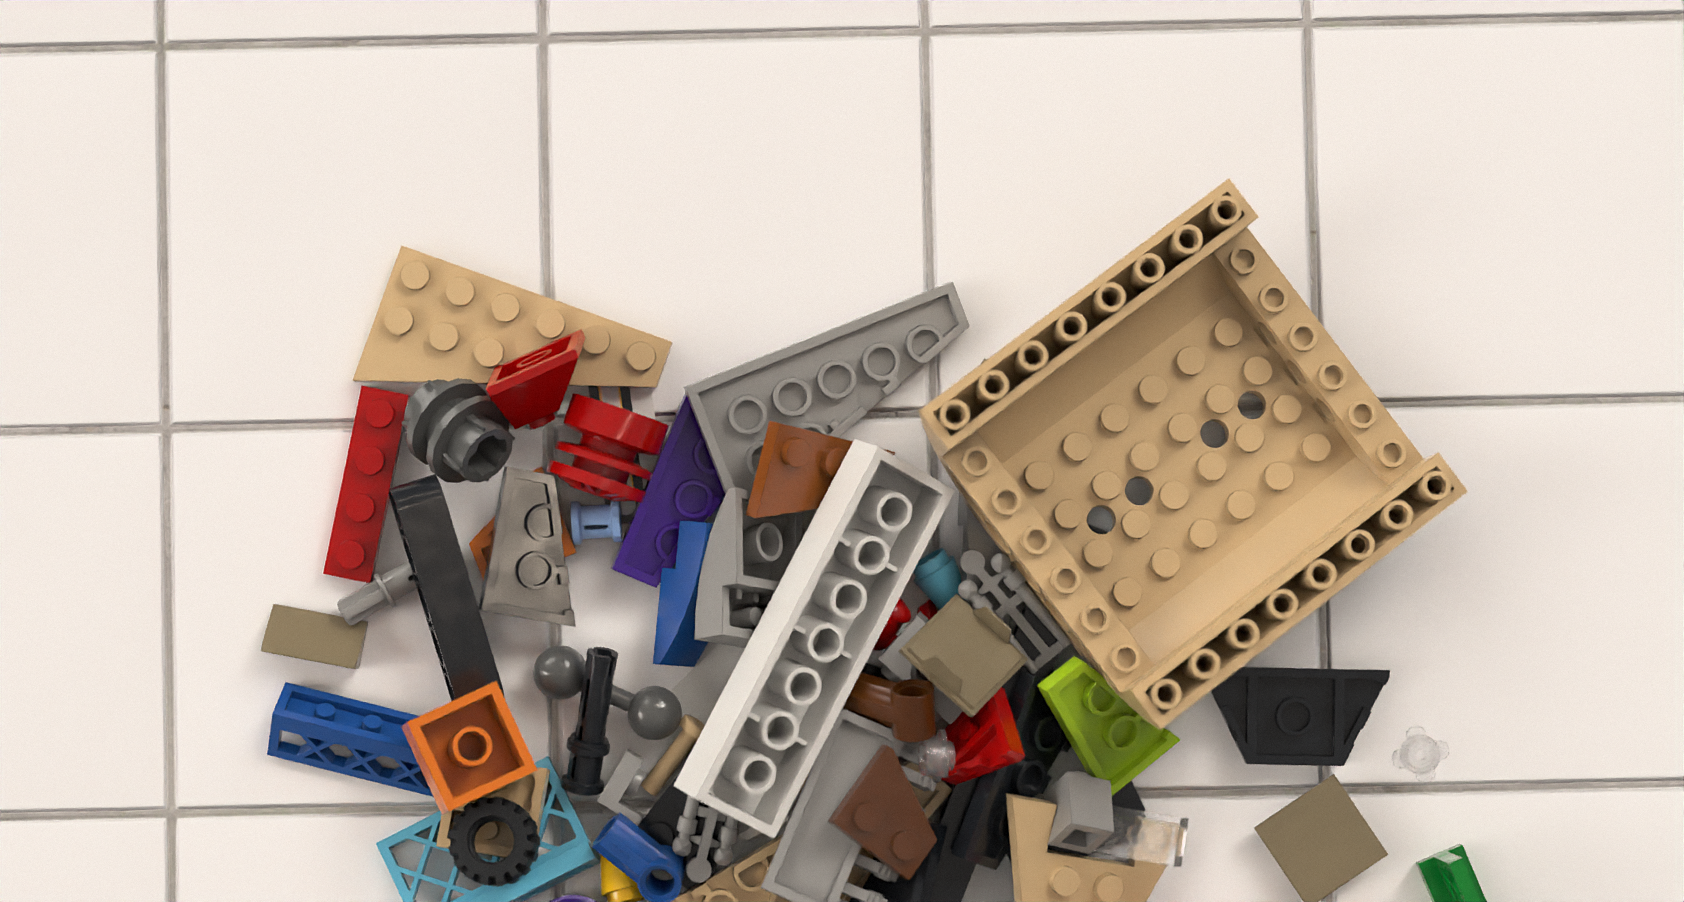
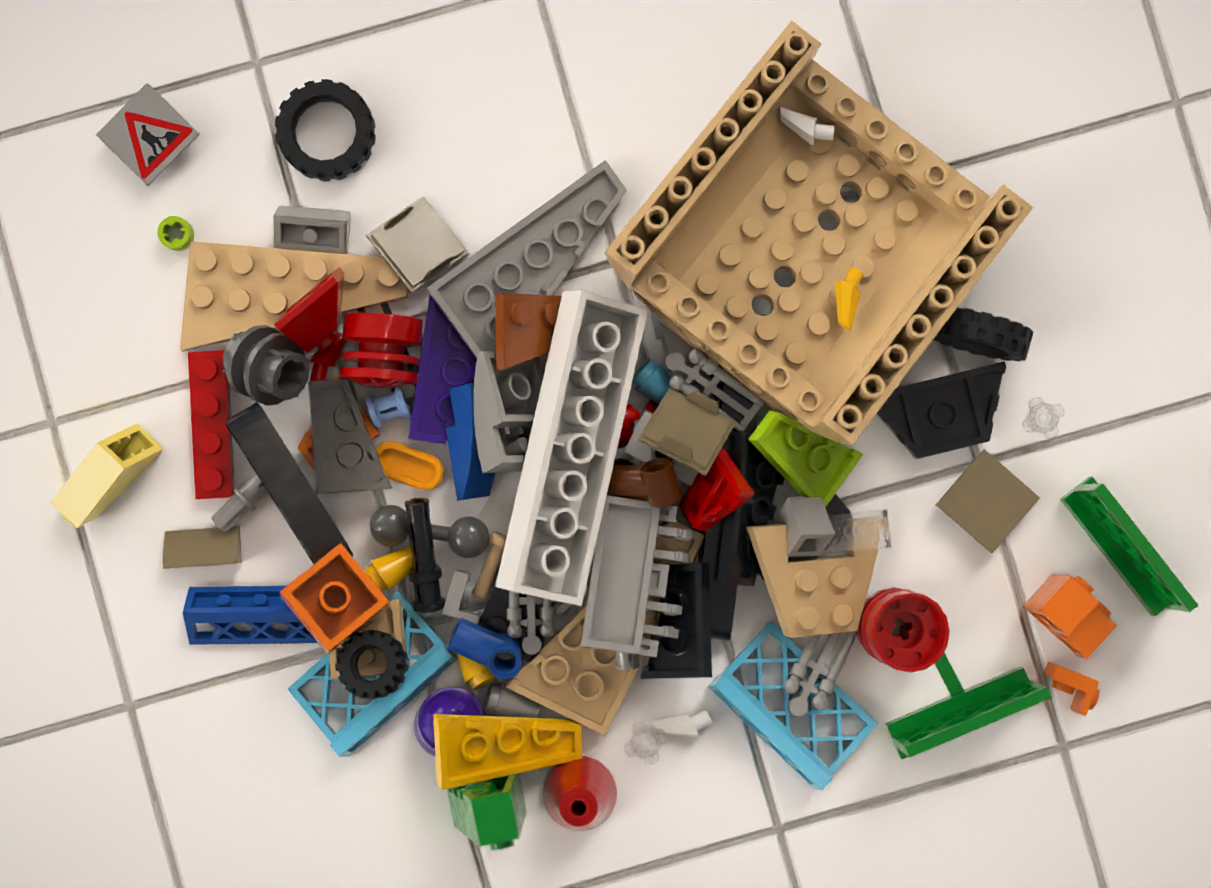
camera: 15 degrees left, 0 degrees up
(219, 514) = (105, 474): none -> light yellow slope
(383, 96) = (147, 134): none -> light grey piece
(385, 215) = (174, 222): none -> lime bush
(535, 439) = (326, 358): none -> red bar
(547, 726) = (390, 568): none -> yellow cone
(558, 270) = (311, 229): none -> light grey slope
(596, 100) = (308, 96): none -> black tyre
(605, 603) = (410, 465): none -> light orange tile
(686, 325) = (417, 244): none -> piece
(886, 815) = (661, 566): reddish brown wing -> none
(936, 756) = (686, 512): clear plate -> none
(1210, 540) = (848, 297): none -> yellow bar
(1216, 308) = (806, 126): none -> white bar
(1371, 633) = (986, 335): none -> black tyre

